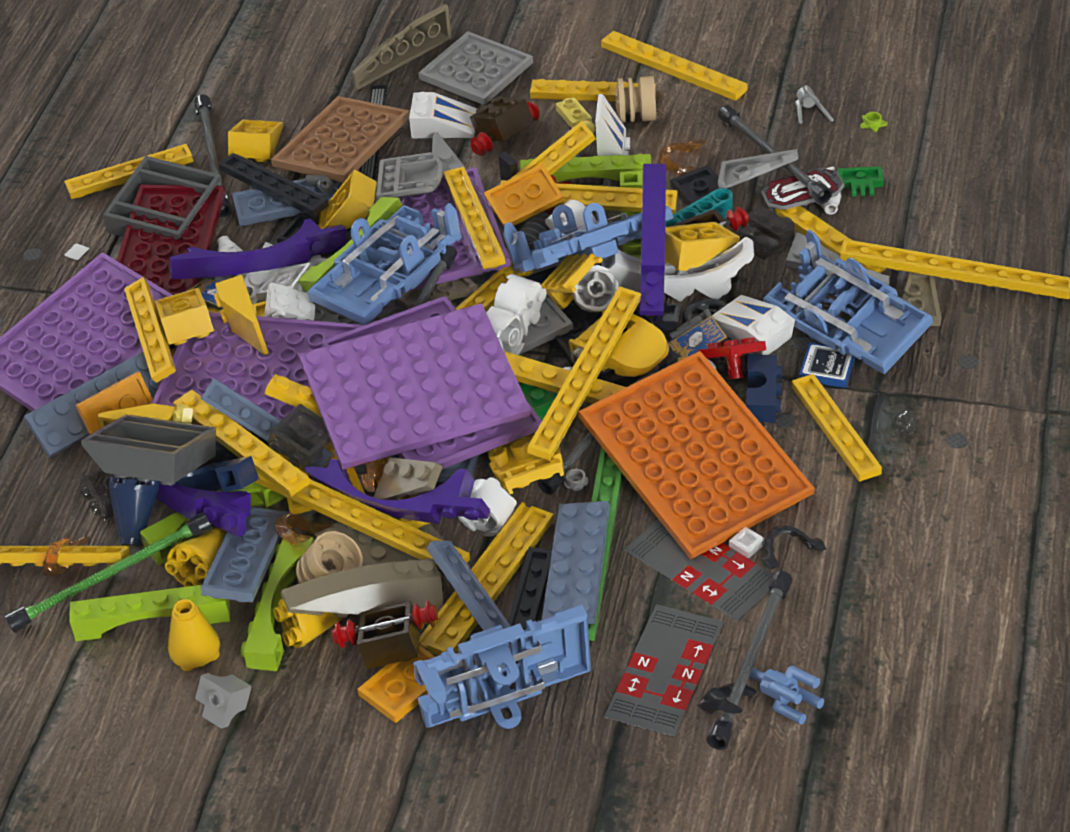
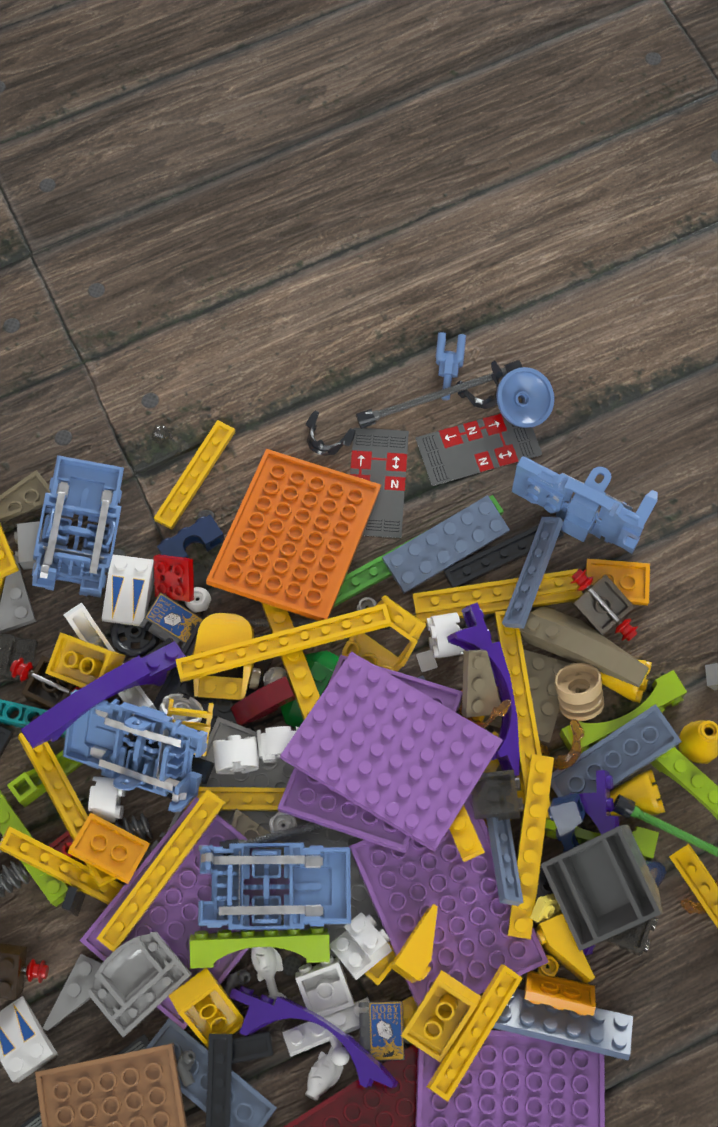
camera: 130 degrees left, 25 degrees up
(552, 349) = (263, 701): none -> dark red slope
(675, 721) = (535, 393): none -> medium blue dish
(746, 542) = (340, 463): white tile -> none
(827, 365) = (135, 521): tile -> none

